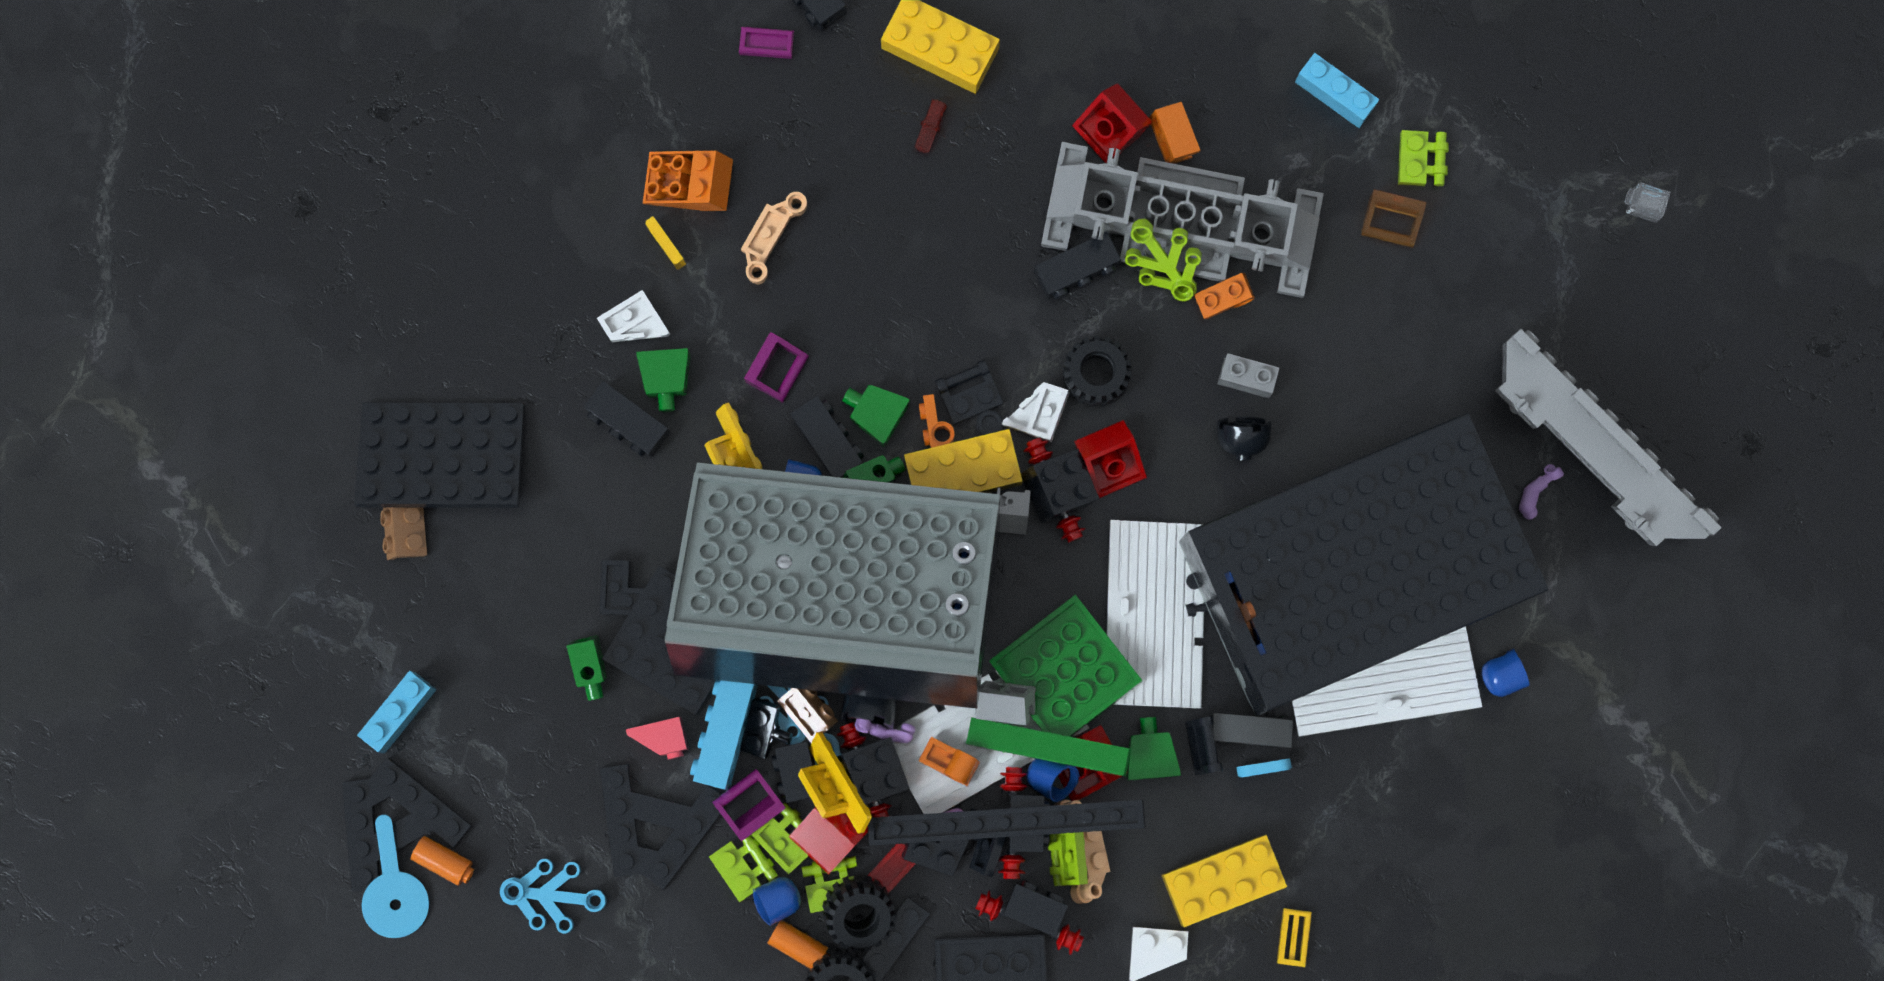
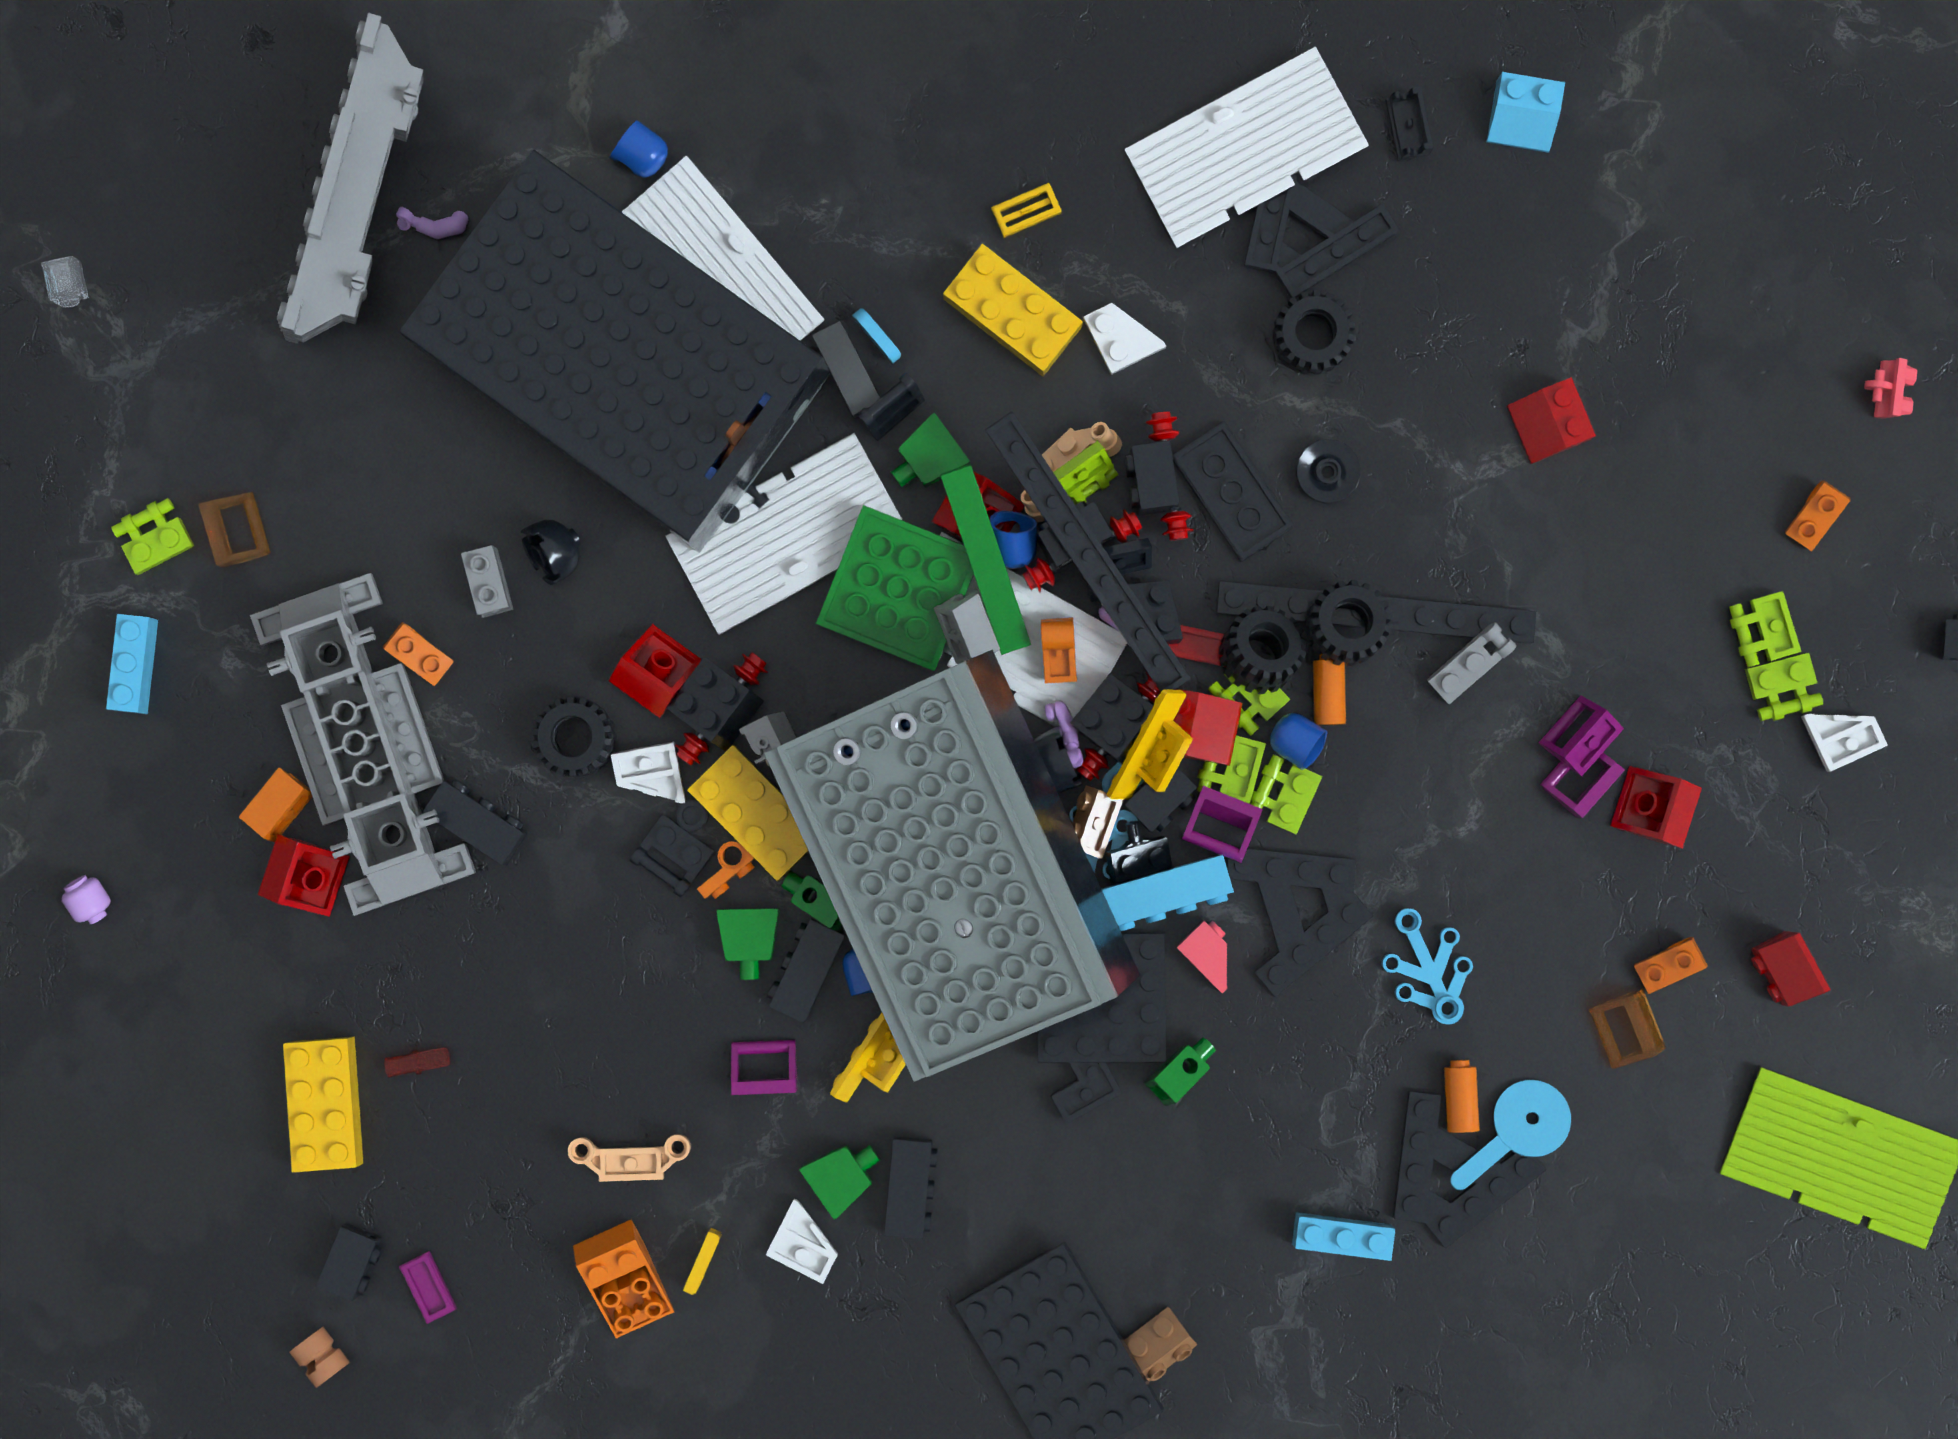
camera: 120 degrees left, 5 degrees up
(1164, 262) = (433, 703): lime plant -> none

